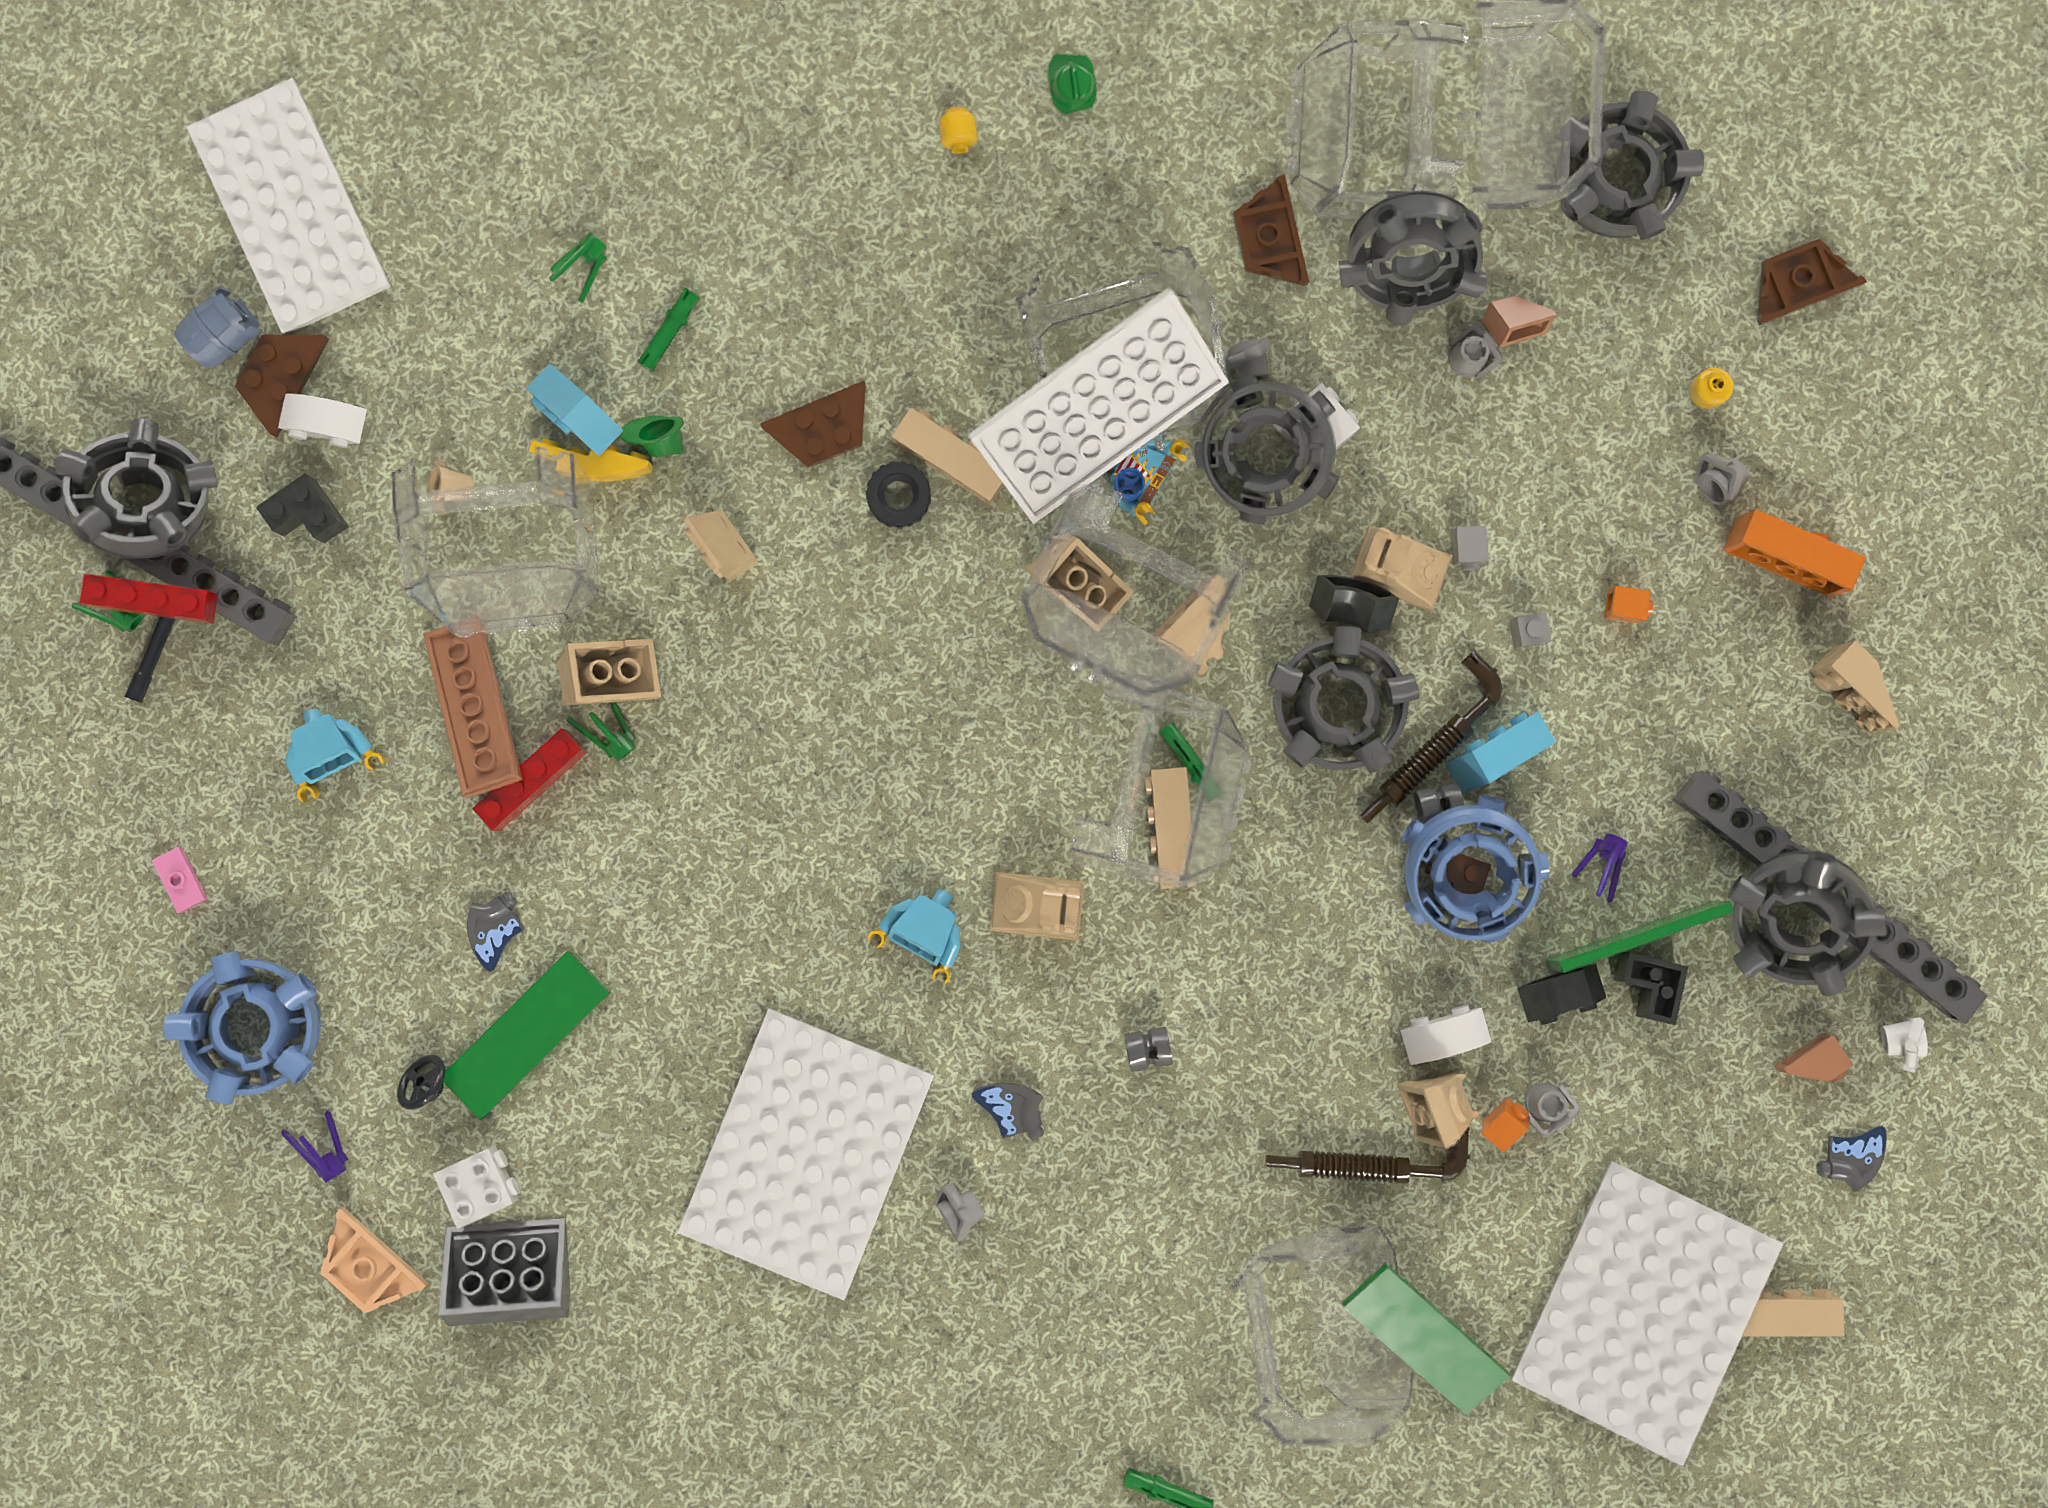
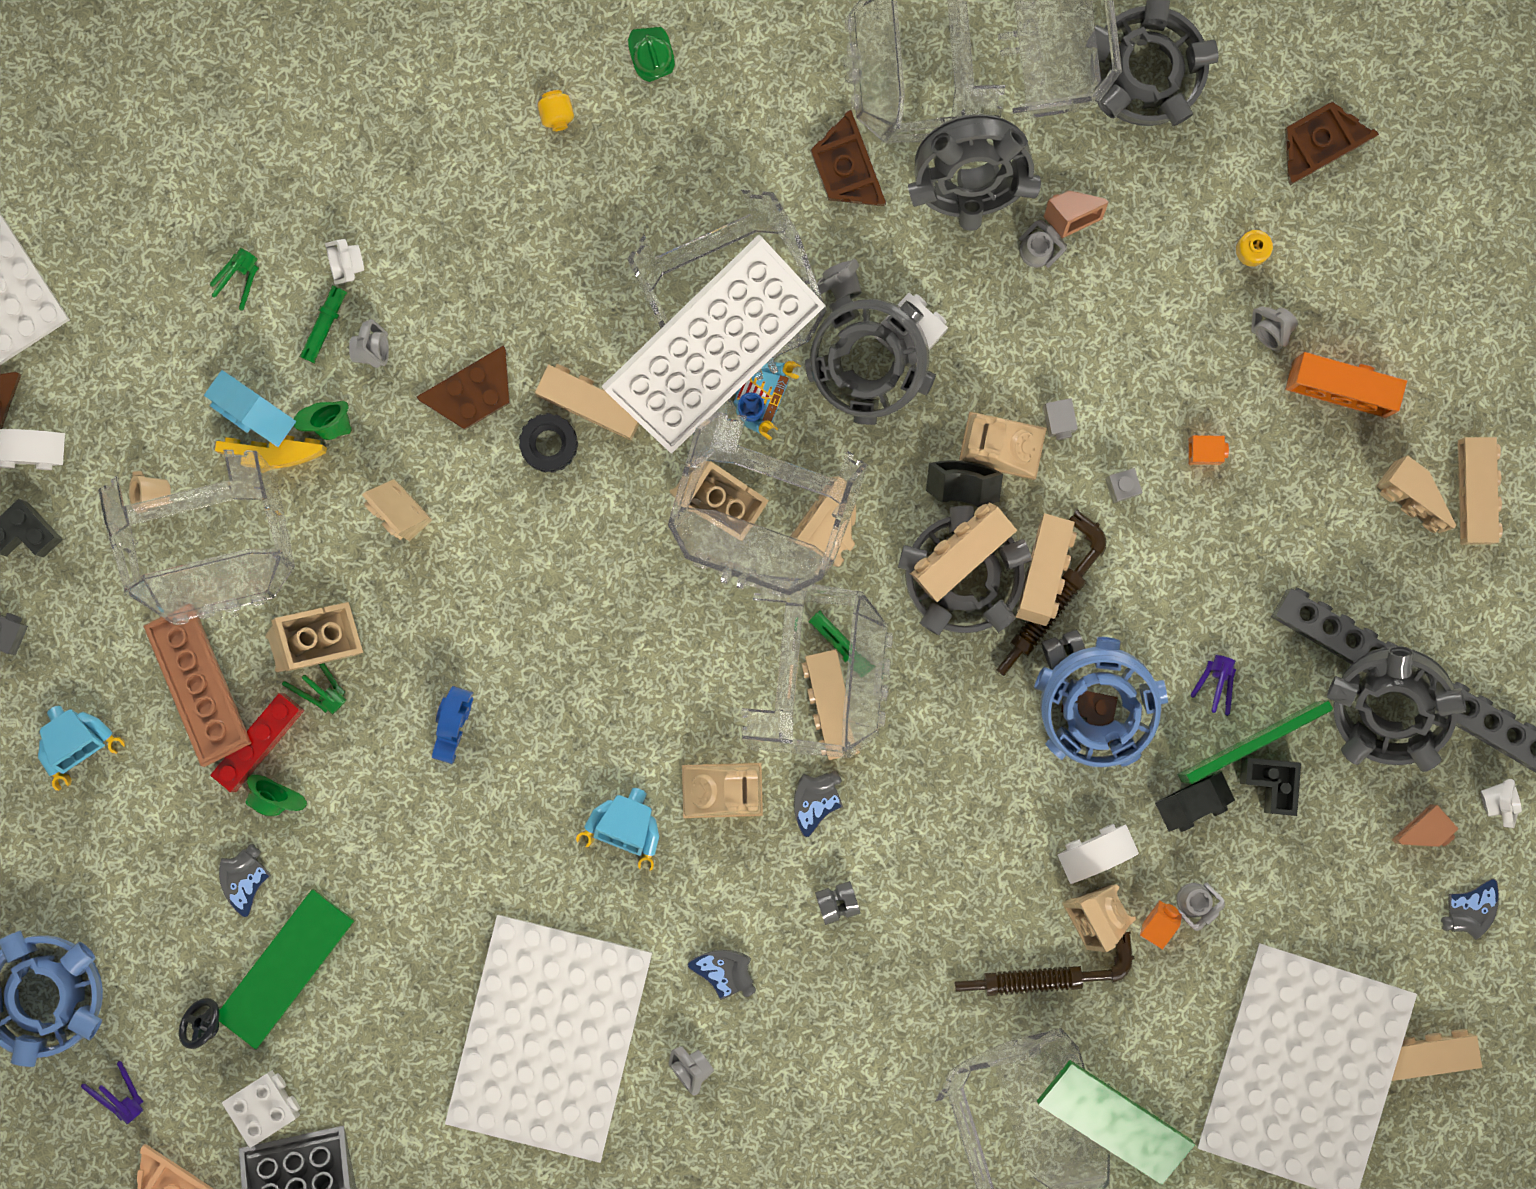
camera: 10 degrees left, 0 degrees up
(536, 843) = (272, 798): none -> green piece
(701, 262) = (344, 260): none -> white piece
(716, 362) = (368, 347): none -> light grey piece
(747, 782) = (450, 717): none -> blue piece
(1139, 931) = (815, 800): none -> dark grey arm
(1344, 677) = (963, 551): none -> tan brick
(1430, 713) = (1045, 570): none -> tan brick
(1501, 752) = (1112, 596): medium azure wedge -> none
(1925, 692) = (1479, 490): none -> tan brick

